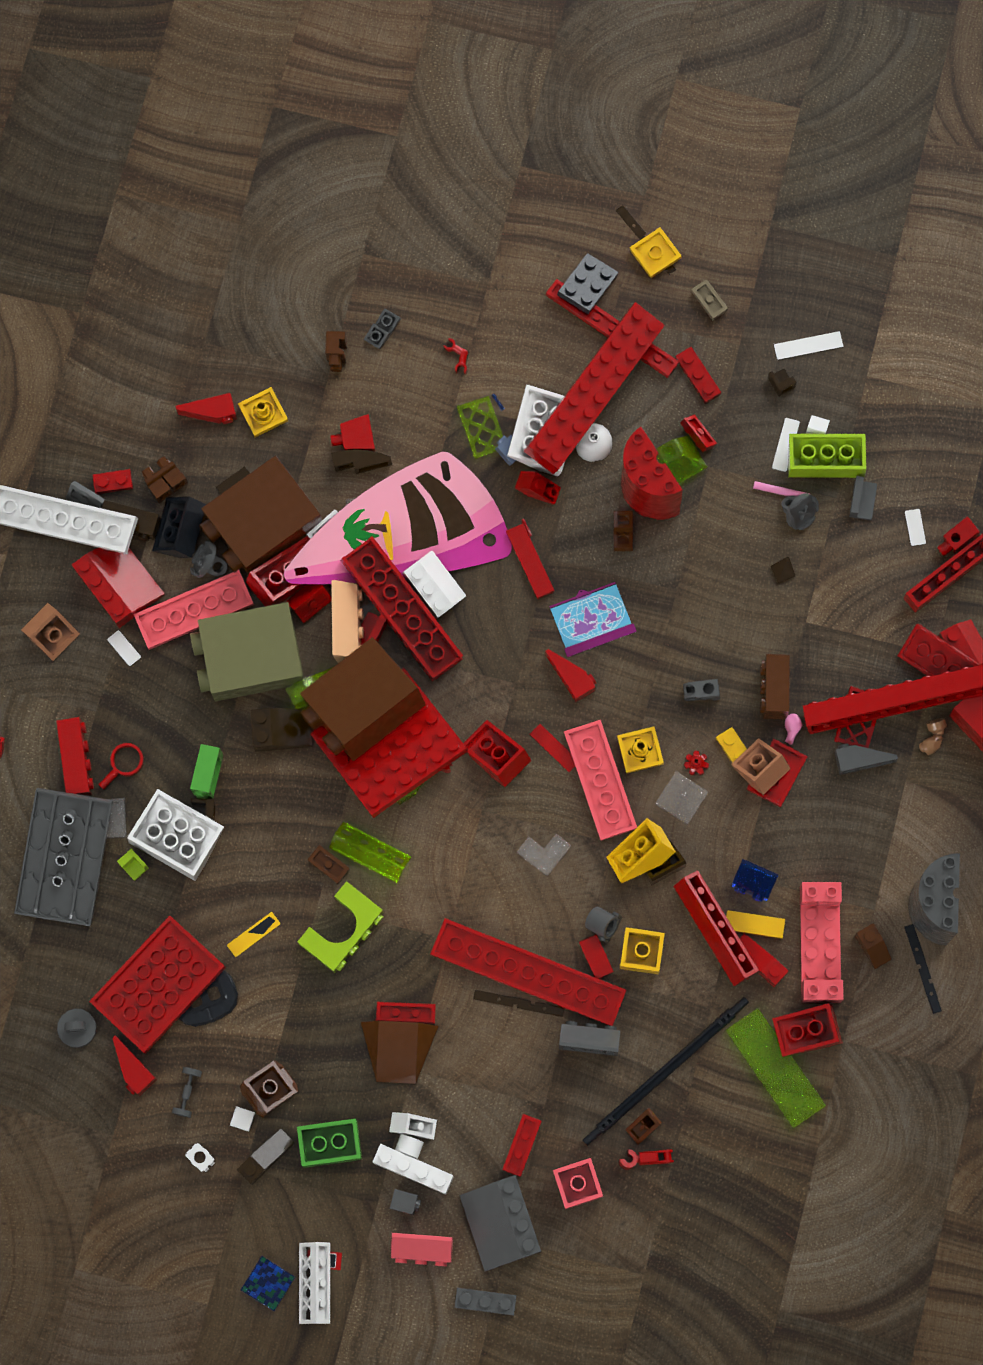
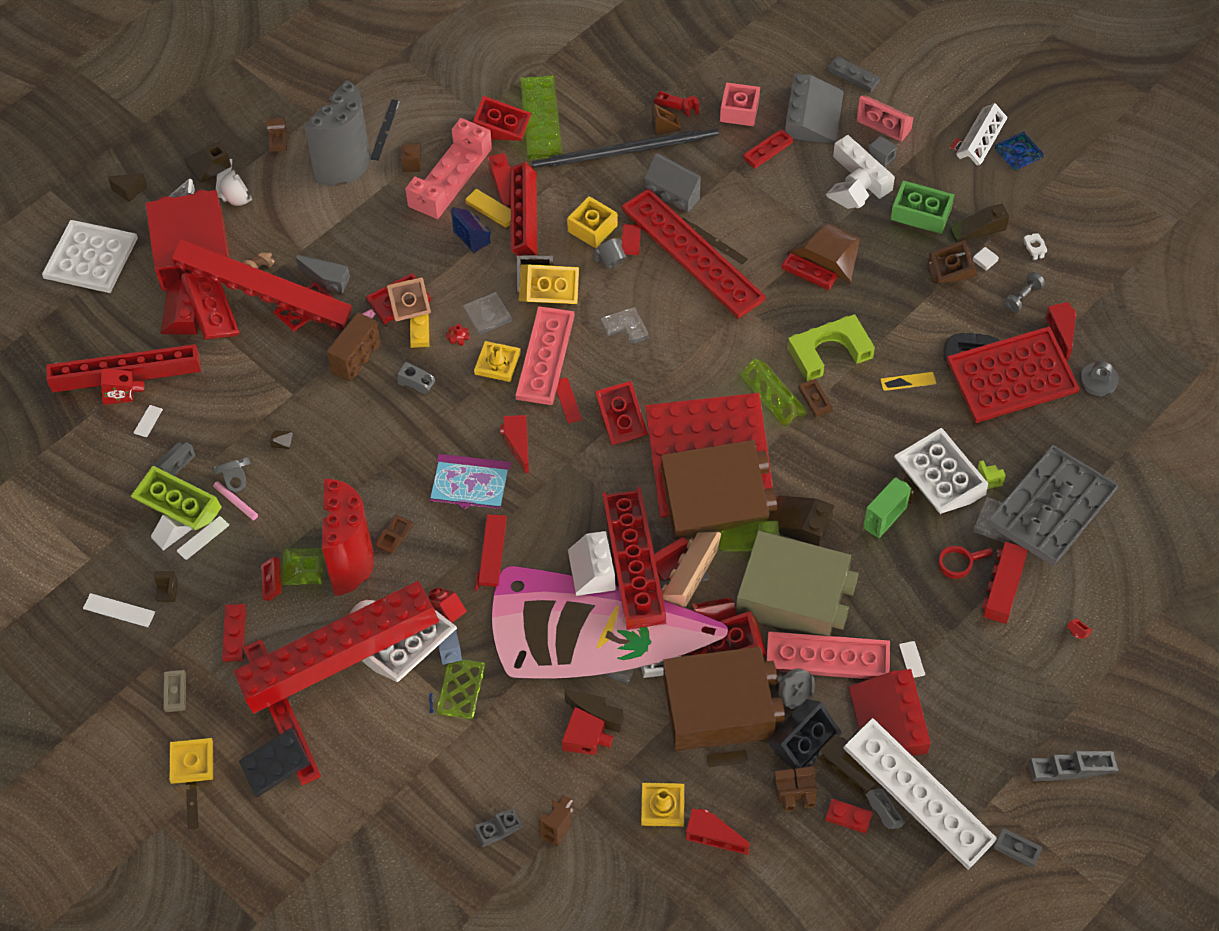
camera: 155 degrees left, 20 degrees down
(50, 631) = (980, 703): nougat slope -> none
(462, 352) = (435, 763): red arm -> none

